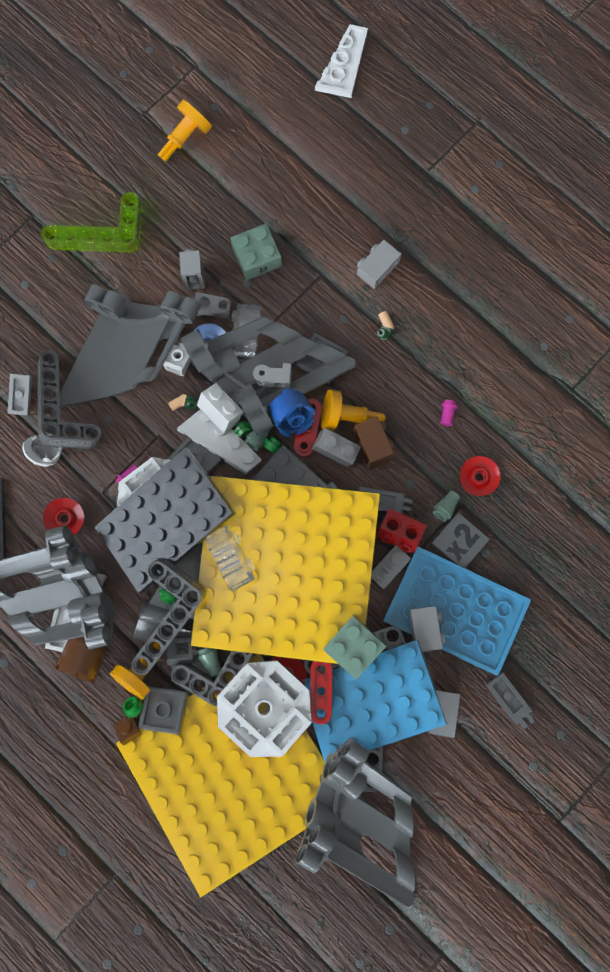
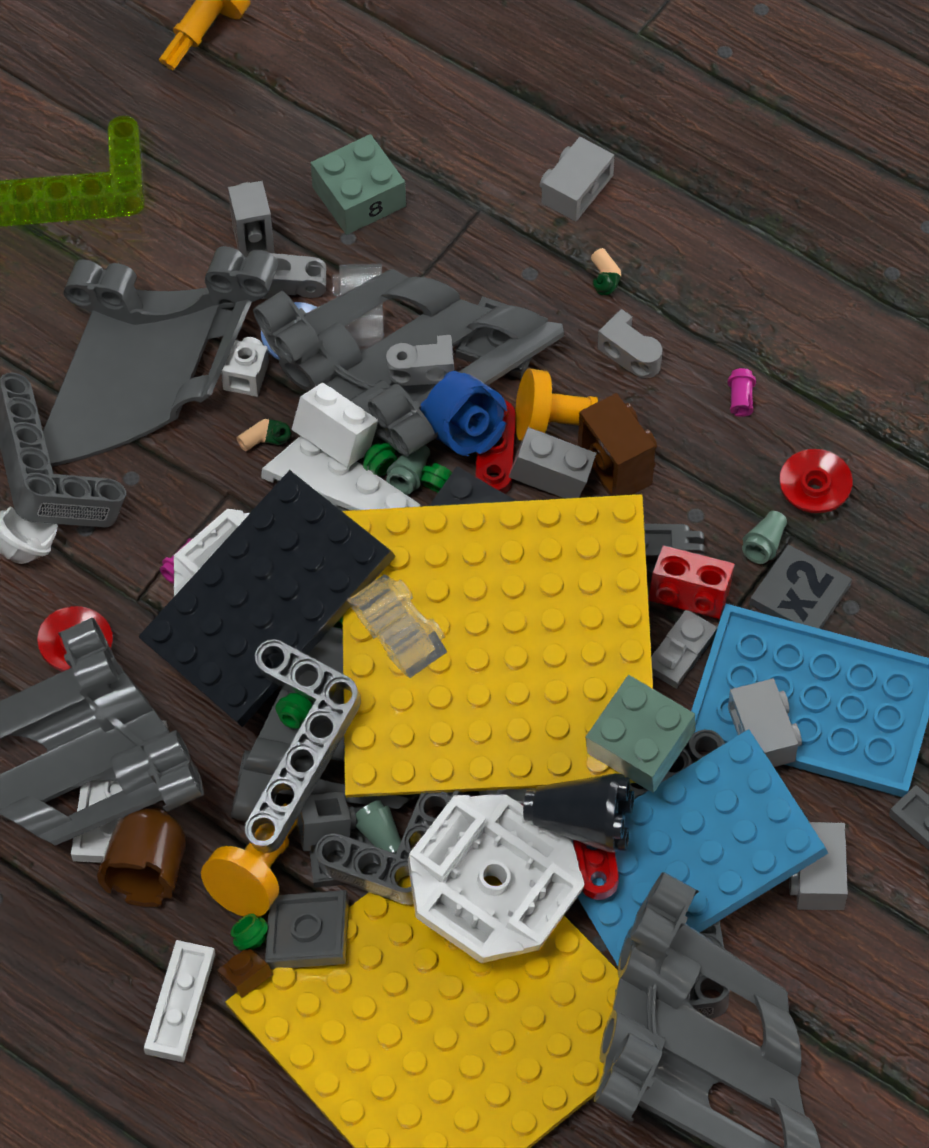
camera: 10 degrees left, 20 degrees down
(91, 741) = (179, 1001): none -> white plate
(317, 682) = (584, 810): none -> black cone
(390, 376) = (630, 348): none -> light grey leg

